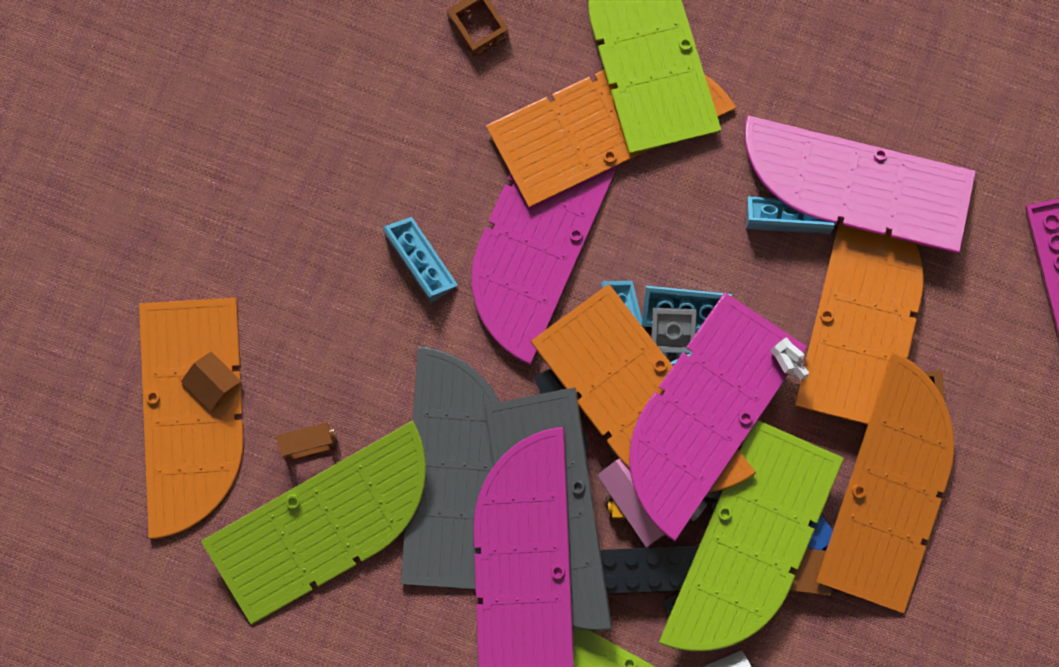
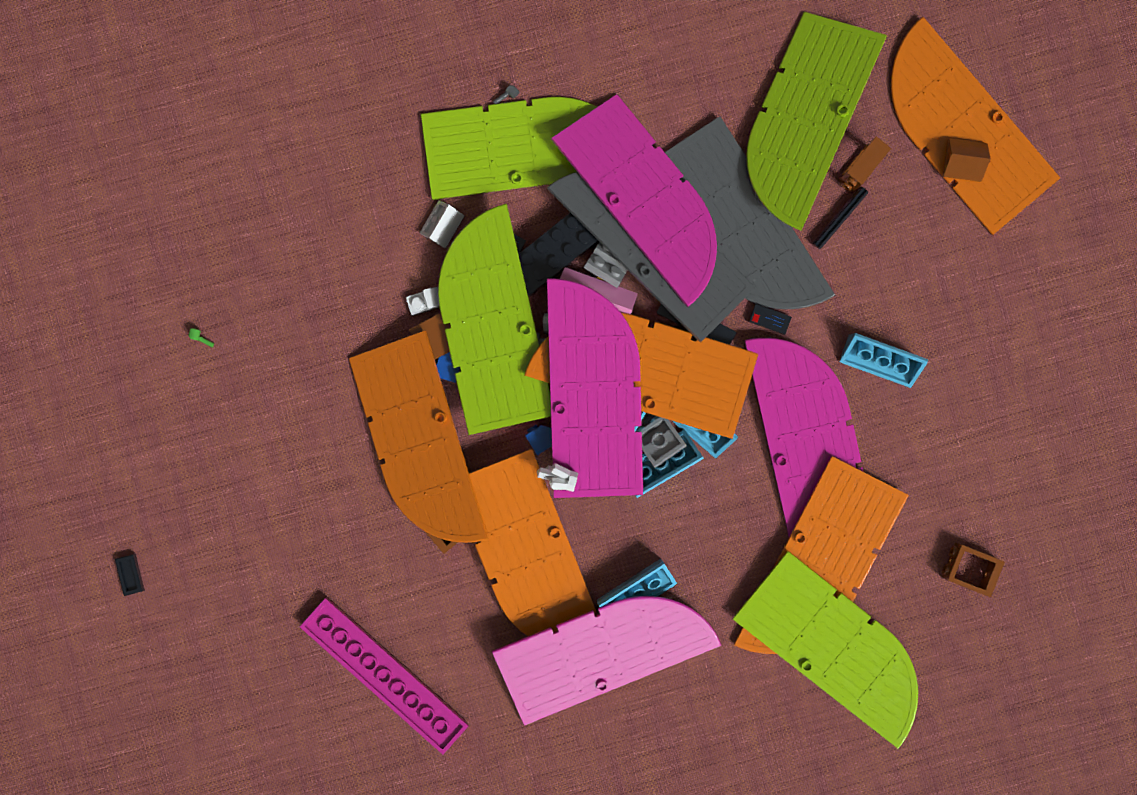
camera: 140 degrees right, 10 degrees up
(361, 411) = (840, 217): none -> black axle
(492, 367) = (770, 319): none -> black tile
(609, 520) = (605, 266): none -> light grey plate
(779, 411) = (540, 438): none -> blue slope
(796, 614) = (423, 301): none -> white slope

